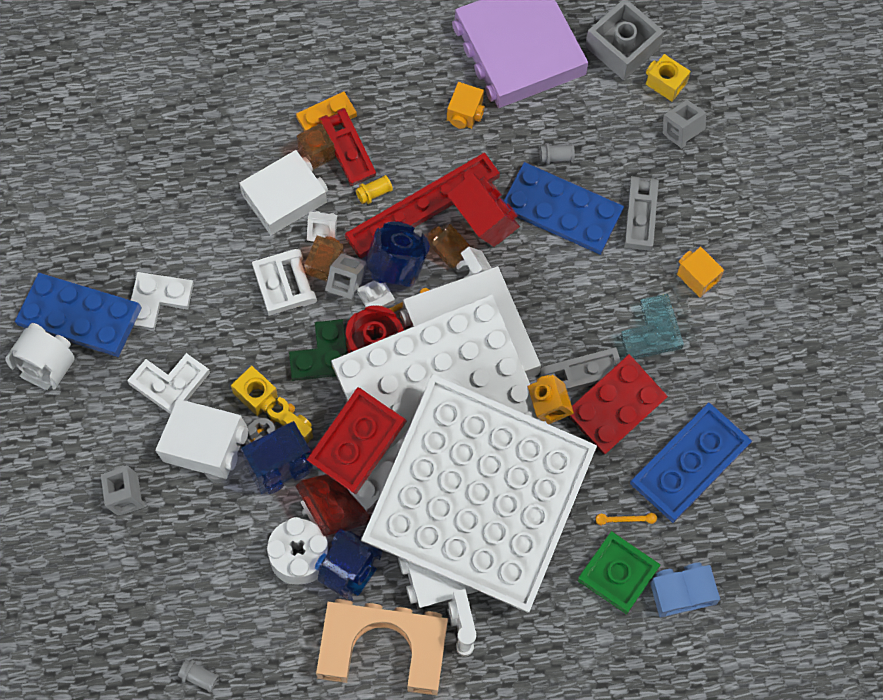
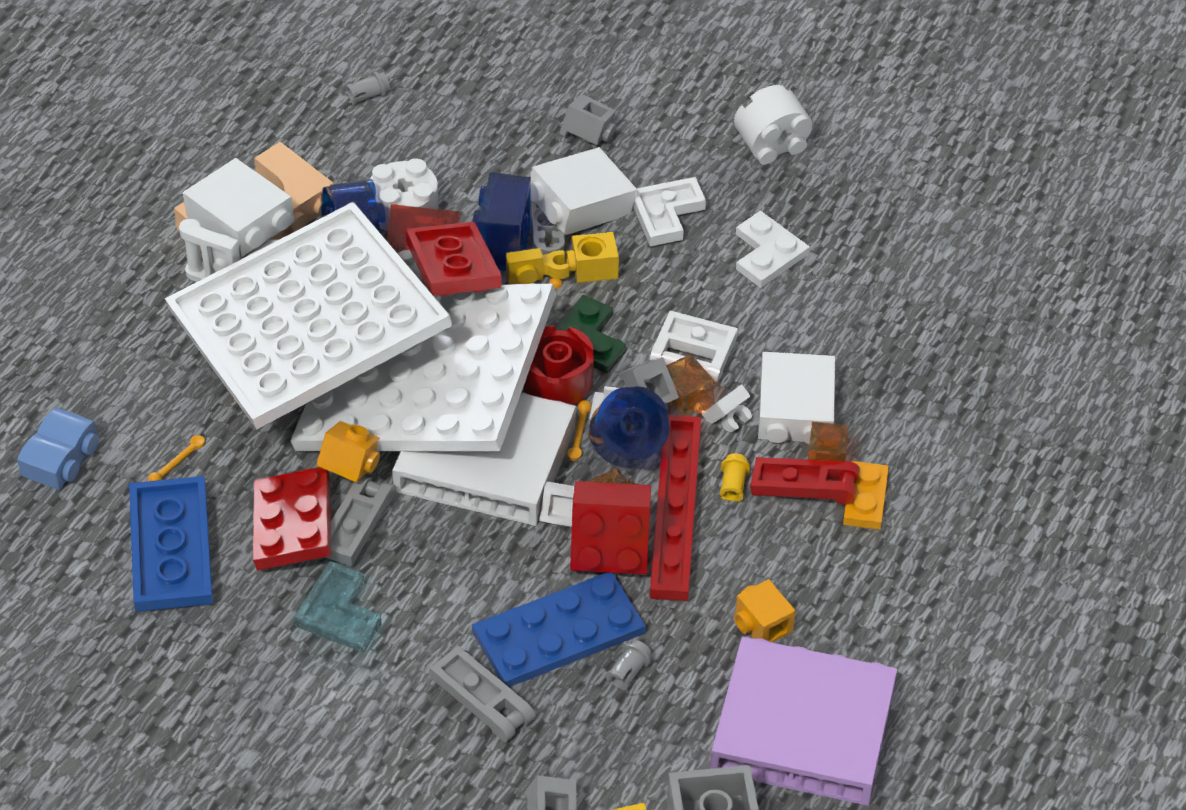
camera: 130 degrees right, 20 degrees down
(79, 314) = (800, 181): blue plate -> none
(414, 628) = (239, 205): none -> white brick
(618, 572) = (132, 414): green plate -> none
(699, 271) = (357, 686): light orange brick -> none

